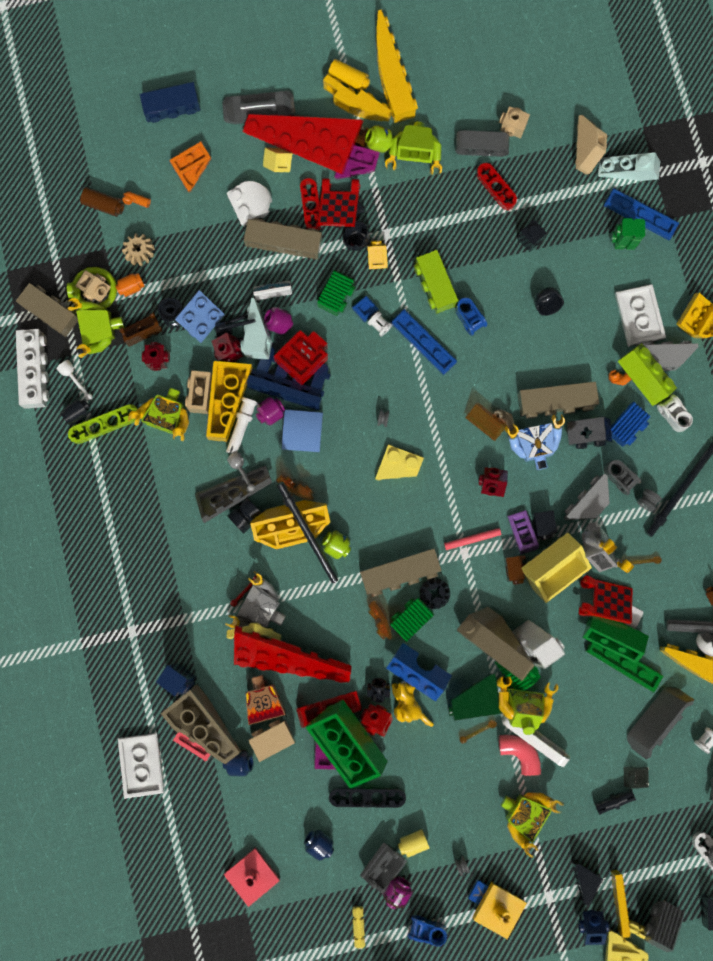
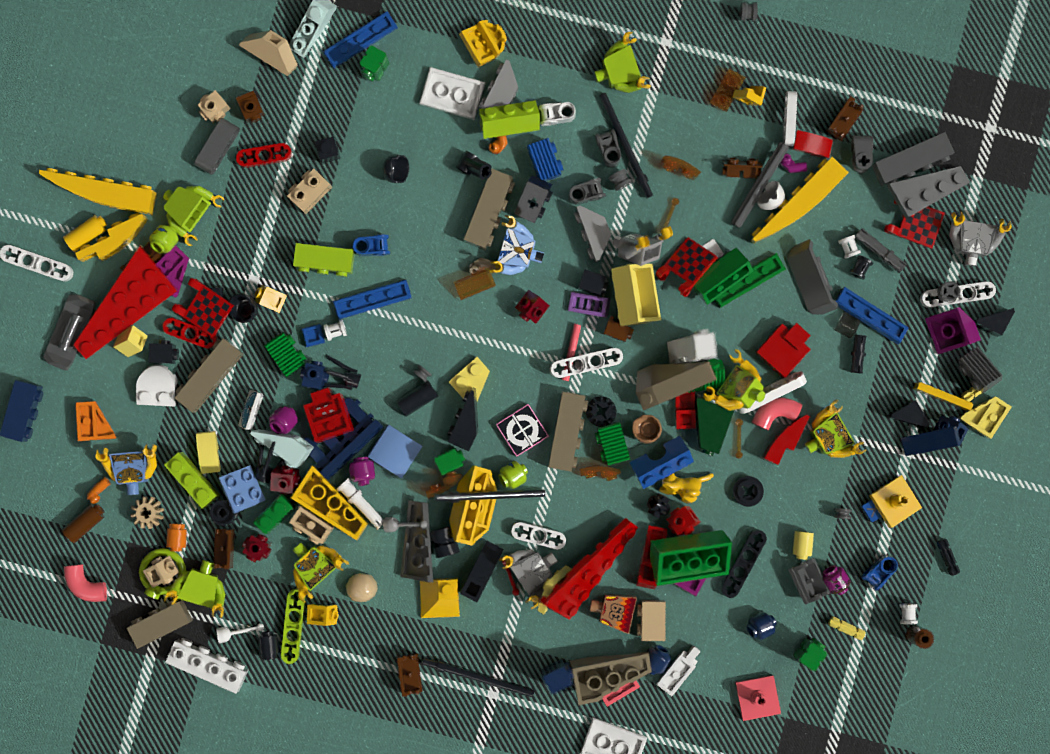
camera: 70 degrees left, 5 degrees up
(45, 230) = (81, 587): none -> coral cylinder
(112, 547) = (409, 674): none -> reddish brown hinge
(126, 443) = (322, 614): none -> yellow bracket
(134, 573) = (441, 666): none -> black bar
(167, 465) = (361, 587): none -> tan hair
(169, 214) = (129, 467): none -> torso
(186, 271) = (192, 480): none -> lime brick
(192, 356) = (274, 514): none -> green brick
(193, 538) = (440, 598): none -> yellow slope
(217, 272) = (208, 452): none -> light yellow slope
(236, 562) = (481, 571): none -> black slope
(238, 789) = (678, 671): none -> white hinge
(281, 191) = (163, 353): none -> black brick
(287, 592) = (553, 534): none -> white beam
(301, 50) = (36, 263): none -> white beam
(317, 906) = (810, 653): none -> green brick
(319, 481) = (450, 461): none -> green brick
(331, 326) = (307, 375): none -> dark blue brick
(344, 360) = (351, 379): none -> black plant
(355, 481) = (466, 427): none -> black slope
(358, 425) = (417, 398): none -> black brick
(380, 532) = (522, 430): none -> tile
(440, 774) = (757, 490): none -> black gear
(441, 642) = (646, 429): none -> medium nougat hair
(468, 558) = (586, 364): none -> white beam
(476, 669) = (685, 411): none -> red slope
(487, 239) = (309, 190): none -> tan brick
(500, 776) = (785, 440): none -> red slope
(537, 149) = (248, 99): none -> reddish brown brick
(574, 915) = (931, 441): none -> dark blue tile
(582, 730) = (784, 348): none -> red piece
(588, 363) = (472, 165): none -> black piece
(656, 795) = (871, 315): none -> blue tile
(674, 473) = (608, 144): none -> dark grey piece
(686, 878) = (952, 330): none -> magenta slope
(690, 540) = (673, 164): none -> clear orange slope
(694, 761) = (861, 267): none -> black bush

